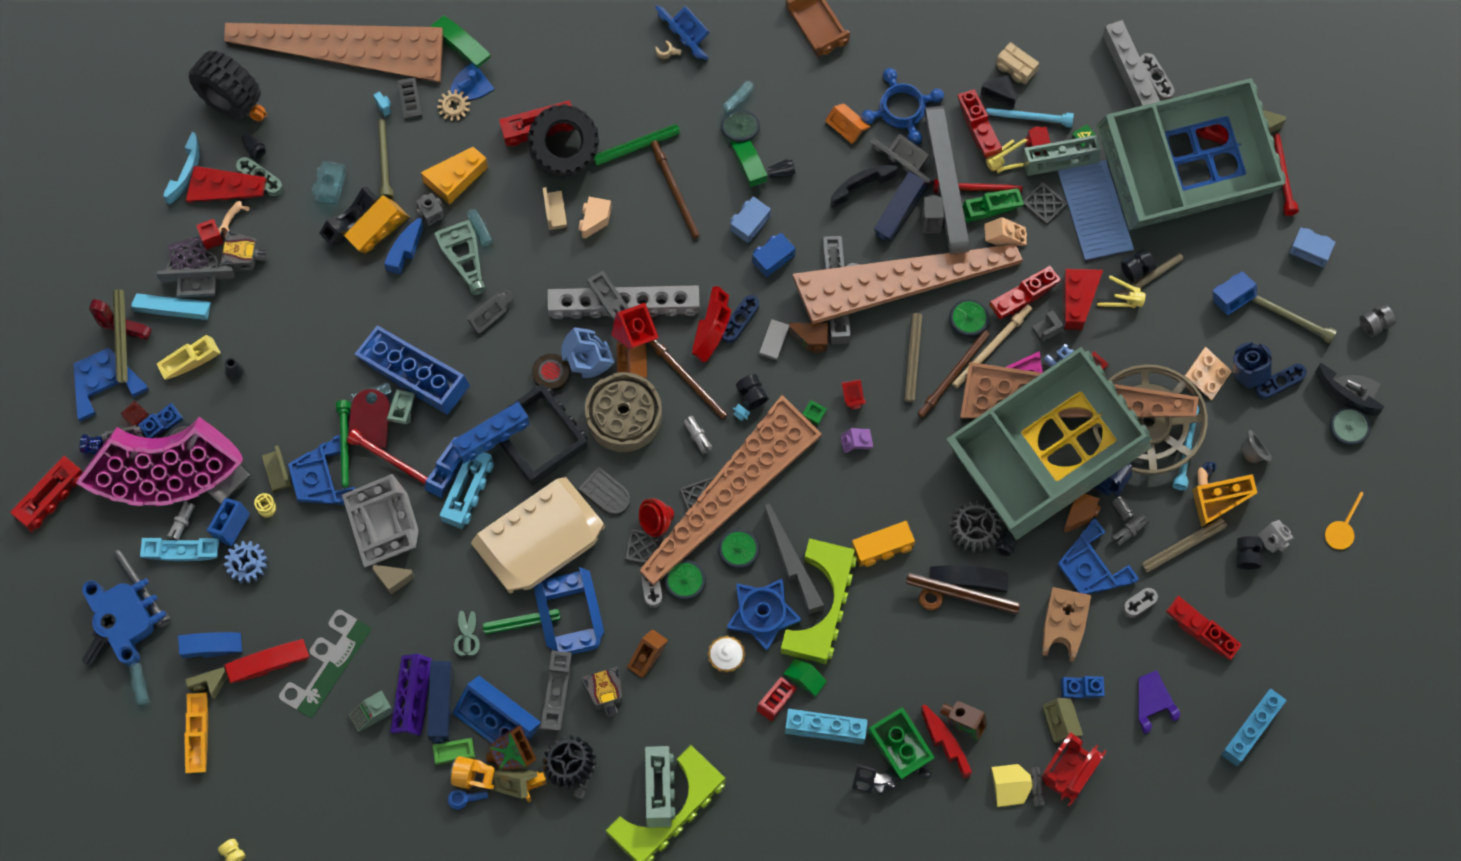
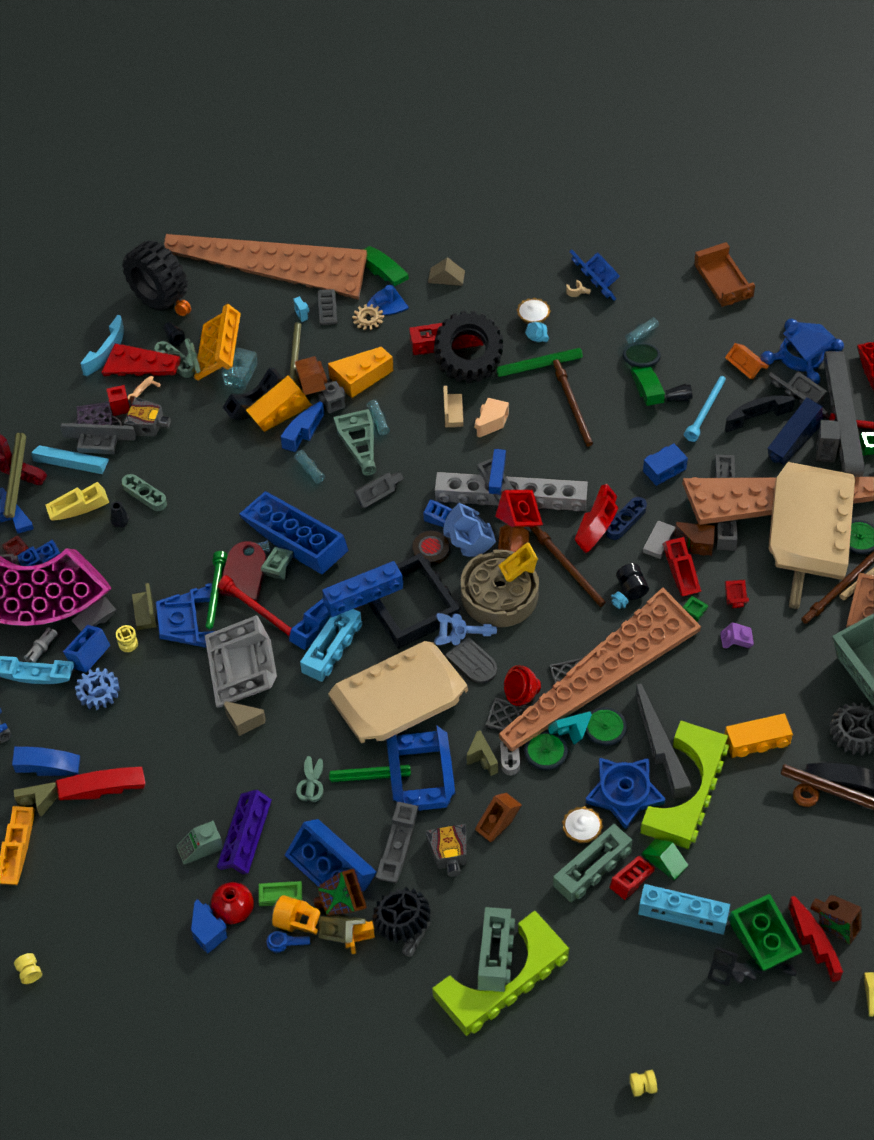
camera: 10 degrees right, 15 degrees down
(250, 330) = (147, 499): none -> sand green beam
(278, 174) = (192, 356): none -> sand green piece
(310, 157) = (227, 329): none -> light orange fence
(334, 664) = (169, 796): piece -> none
(389, 794) = (206, 928): none -> blue slope
(405, 188) = (311, 375): none -> dark orange brick
(412, 775) = (235, 909): none -> red piece
(417, 292) = (309, 466): none -> clear light blue pin
(440, 701) = (273, 838): dark blue slope -> none
(529, 43) = (446, 273): none -> dark tan slope
(547, 325) = (437, 508): none -> blue slope
(589, 461) = (459, 629): none -> medium blue piece
(608, 288) = (497, 471): none -> blue piece
(623, 586) = (481, 752): none -> olive slope
(624, 84) = (533, 310): none -> white piece
(631, 109) = (537, 332): none -> medium azure piece
(639, 390) = (520, 561): none -> yellow slope
(697, 434) = (572, 616): light grey pin -> none
(710, 553) = (574, 725): none -> teal slope
(719, 715) = (616, 846): none -> sand green brick
(750, 219) = (644, 432): medium blue brick -> none
(798, 214) = (693, 432): none -> medium azure piece
(798, 369) = (681, 566): none -> red slope
(908, 97) = (808, 339): none -> blue slope
(921, 308) = (812, 520): none -> tan slope

